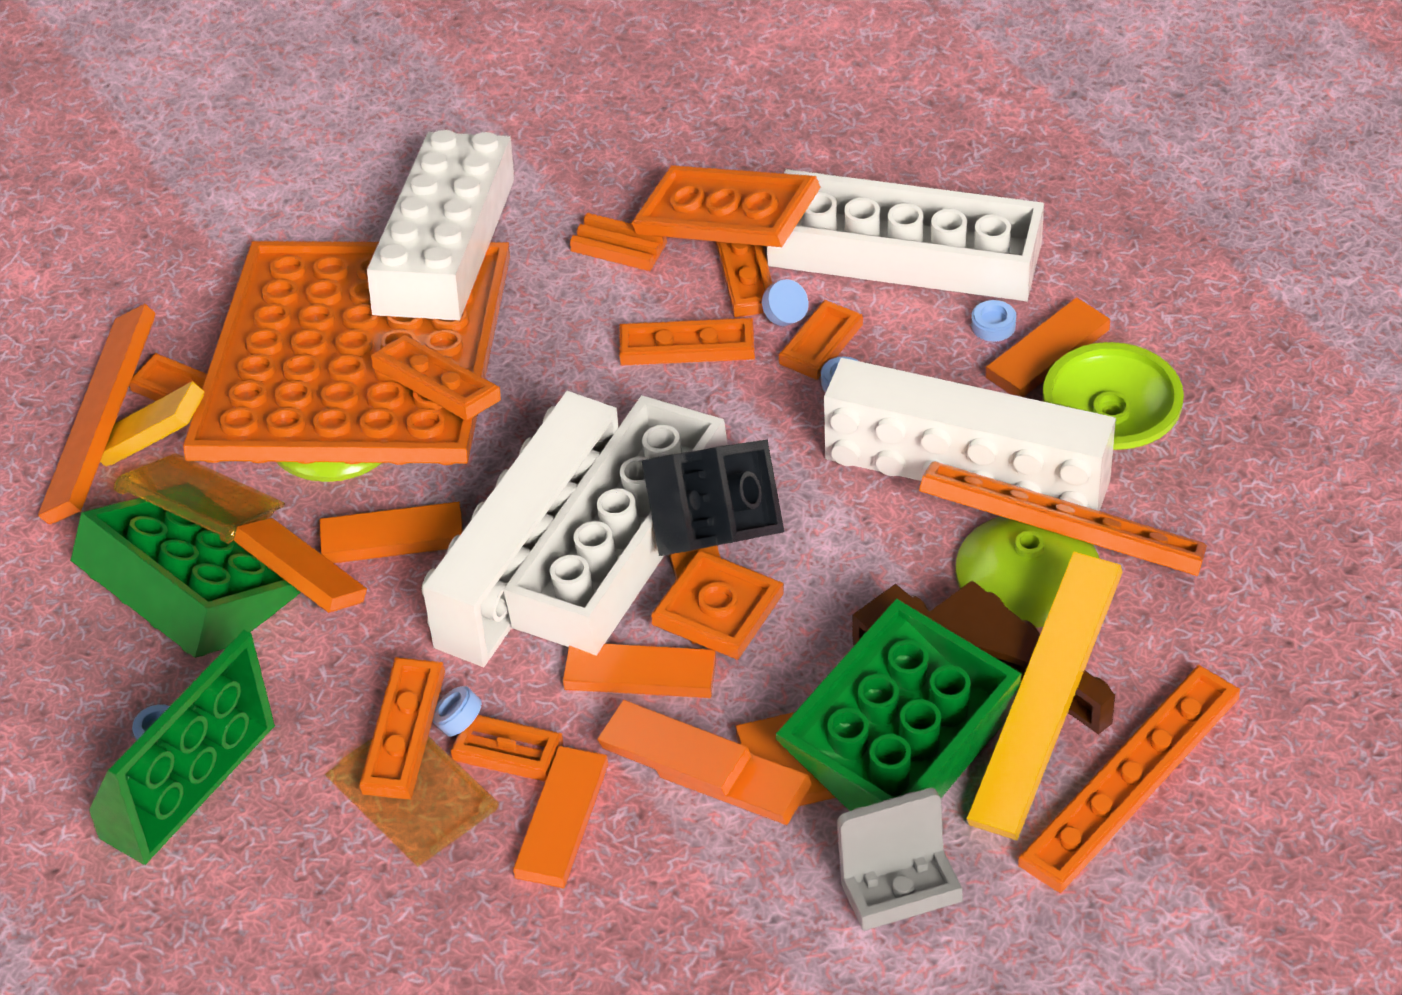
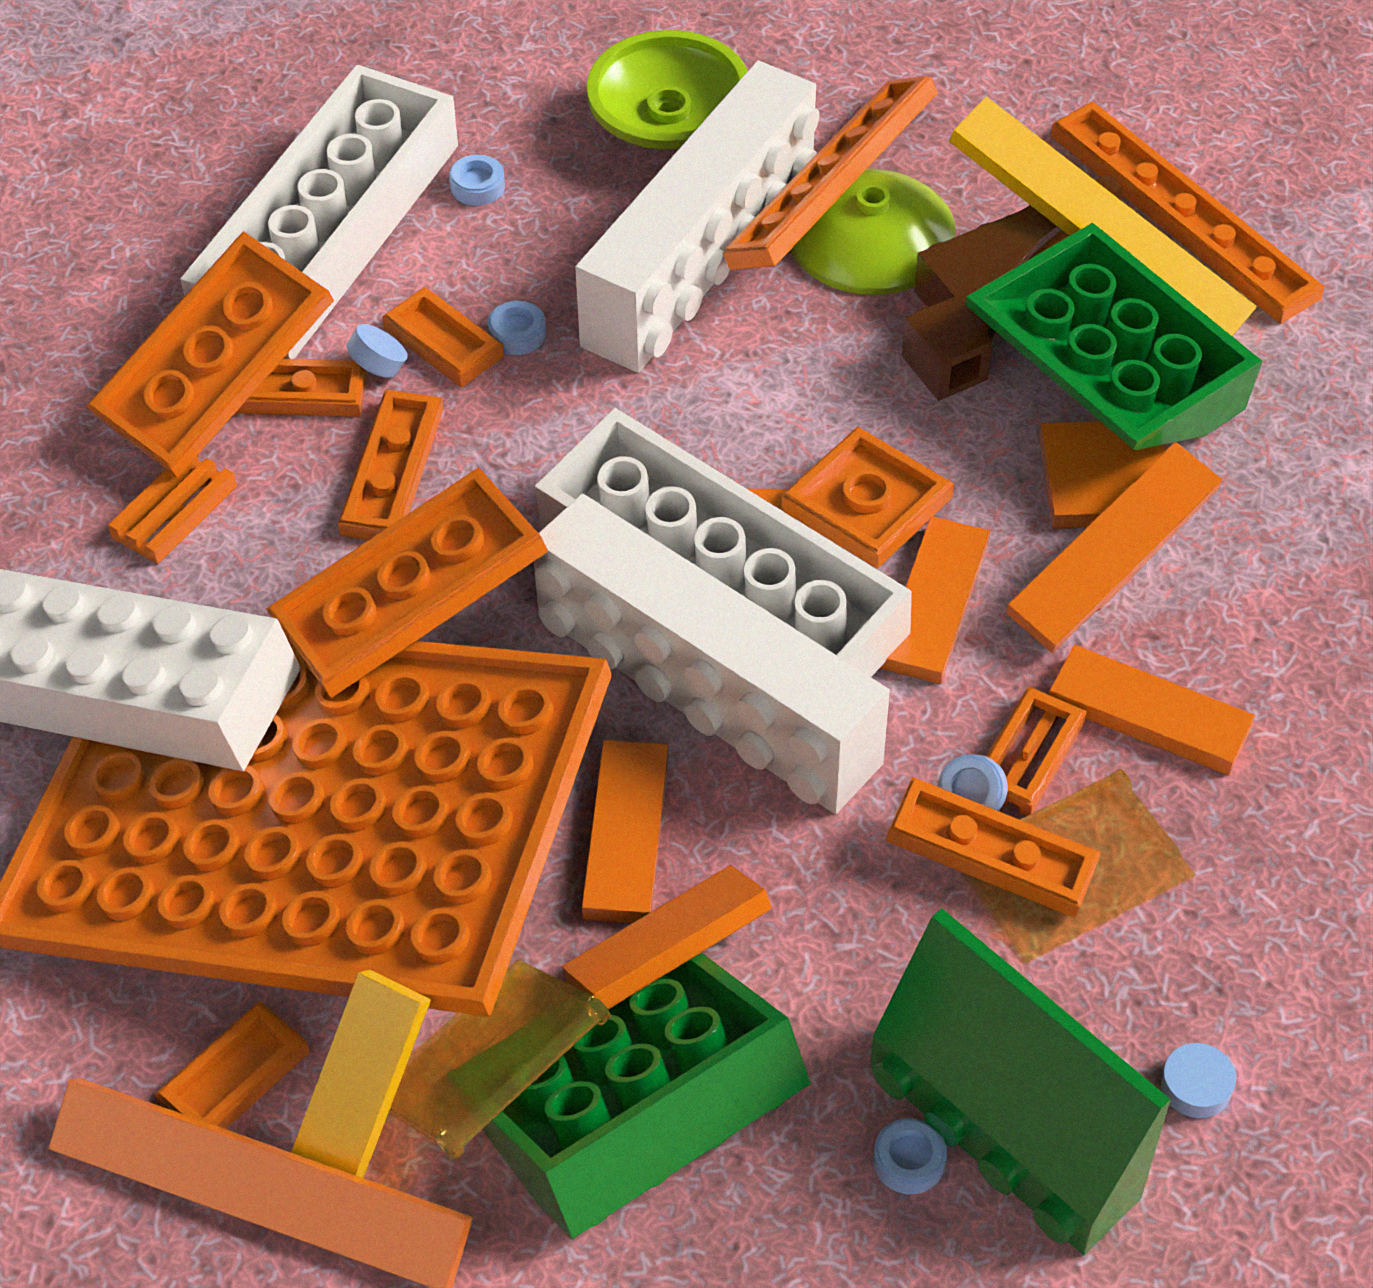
camera: 80 degrees left, 5 degrees up
(235, 882) = (1198, 1080): none -> light blue tile
(436, 377) = (440, 686): orange tile -> none
(527, 342) = (406, 581): none -> orange tile
(712, 496) = (738, 444): black slope -> none
(896, 859) = (1307, 399): light grey bracket -> none
(1029, 360) = (543, 144): orange tile -> none

